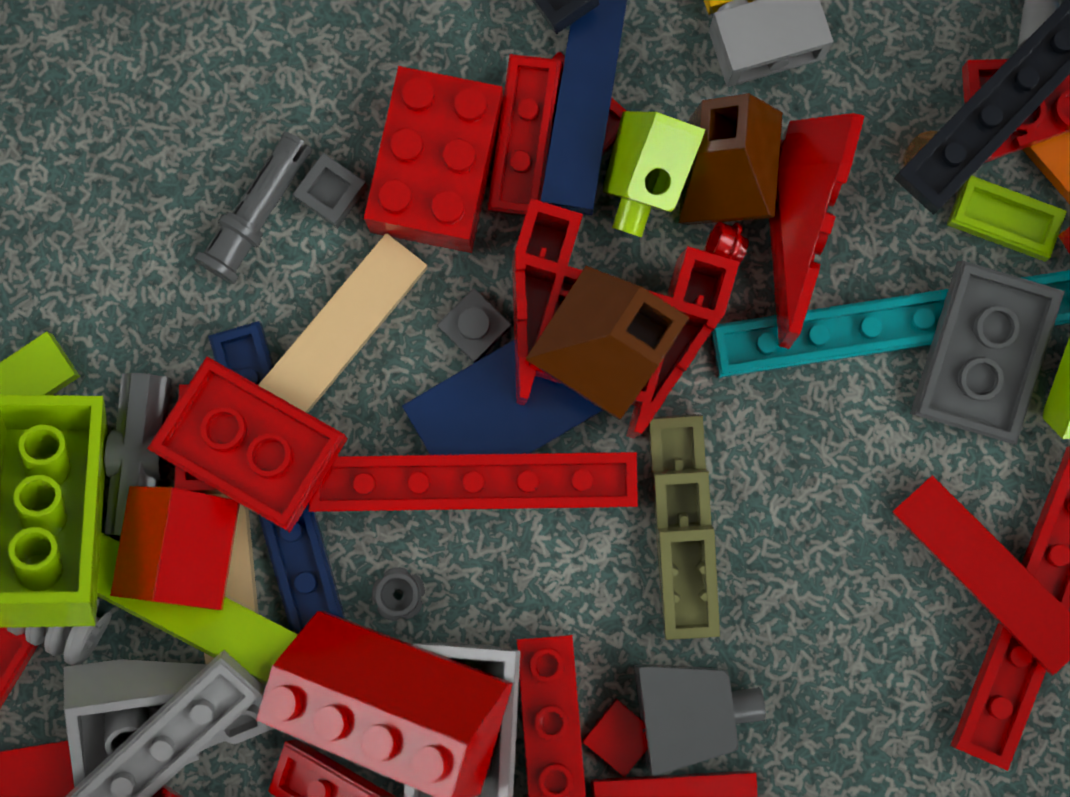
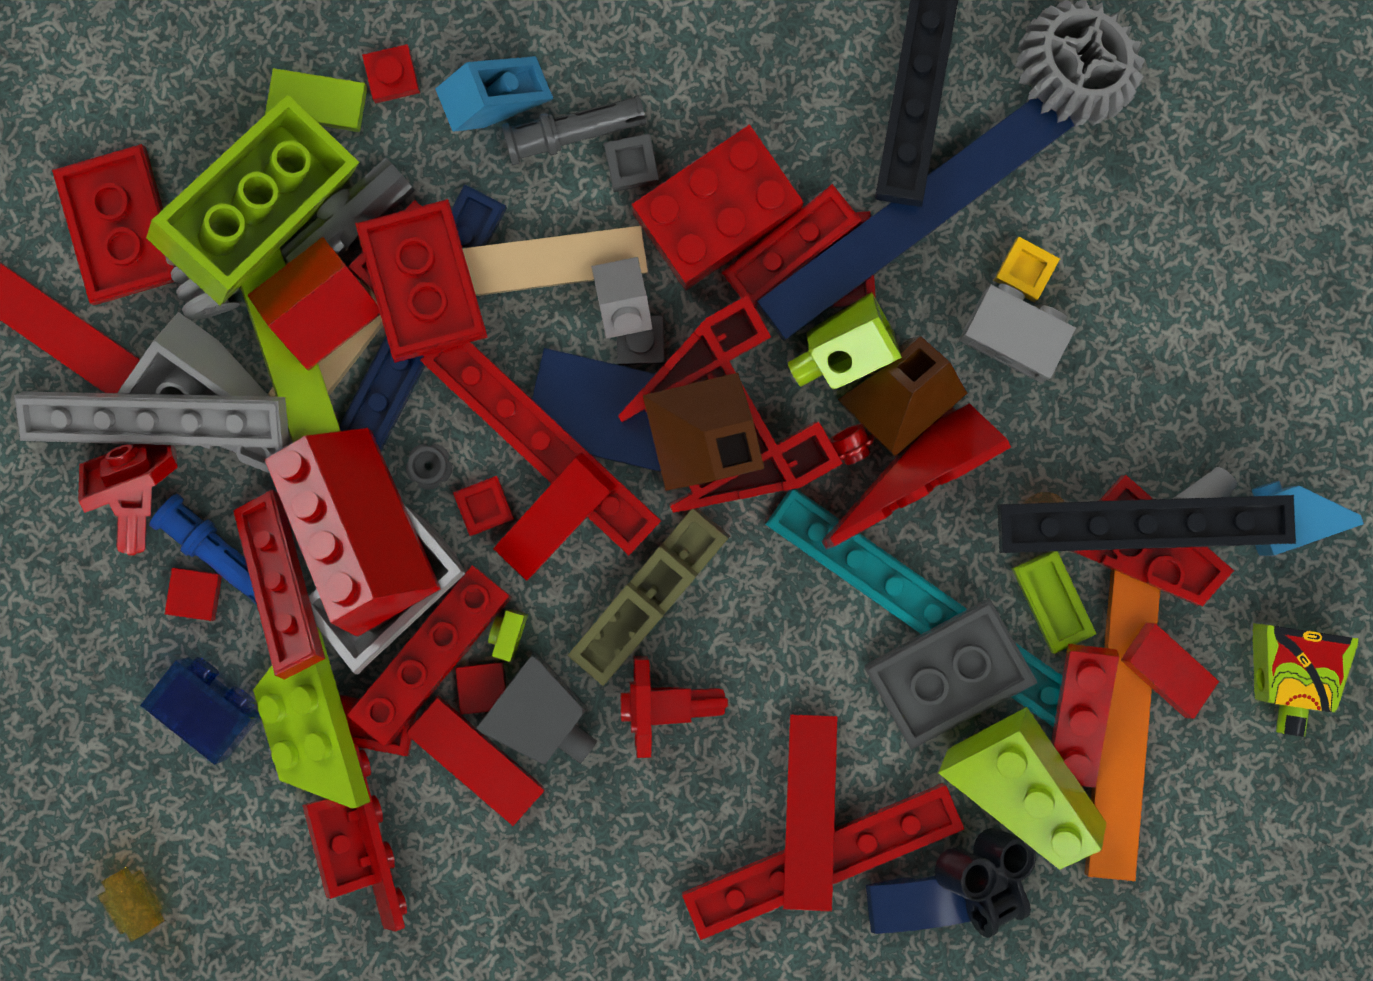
camera: 45 degrees right, 5 degrees up
(62, 304) = (391, 73): none -> red plate
(160, 240) = (492, 91): none -> dark azure slope
(427, 302) = (622, 297): none -> light grey brick
(475, 584) = (483, 506): none -> red tile
(545, 533) = (554, 516): none -> red tile
(599, 671) = (507, 634): none -> lime plate
(777, 614) = (663, 705): none -> red piece

